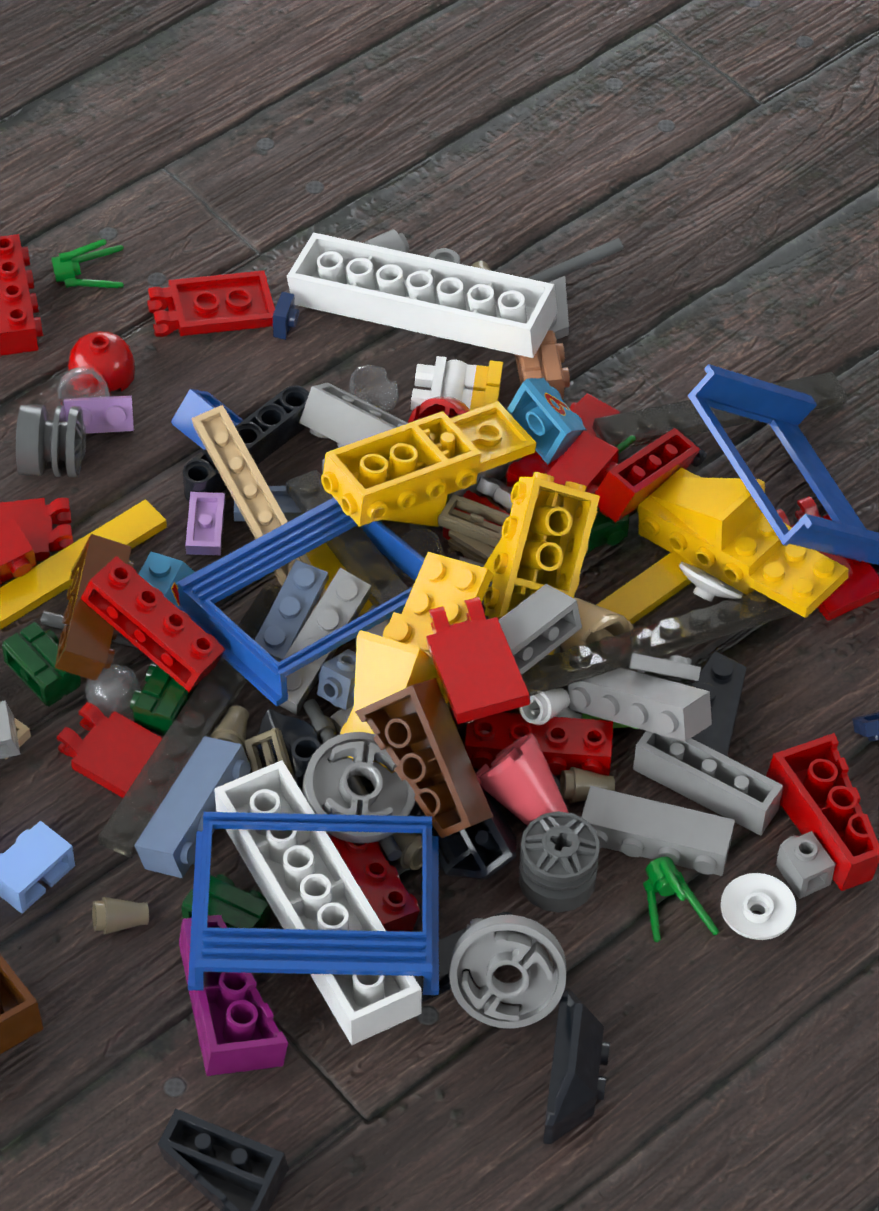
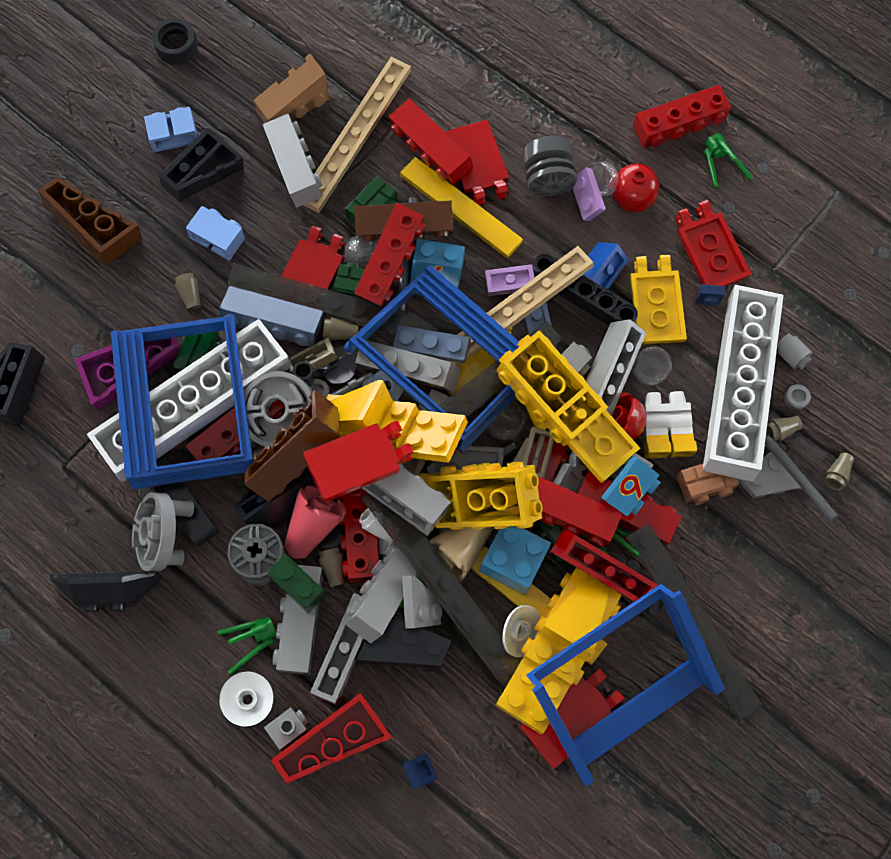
camera: 80 degrees right, 20 degrees up
(268, 368) = (658, 301): none -> yellow tile
(555, 242) = (839, 473): none -> dark tan cone
(617, 570) = (515, 558): none -> dark azure brick
(617, 801) = (296, 583): none -> dark green brick

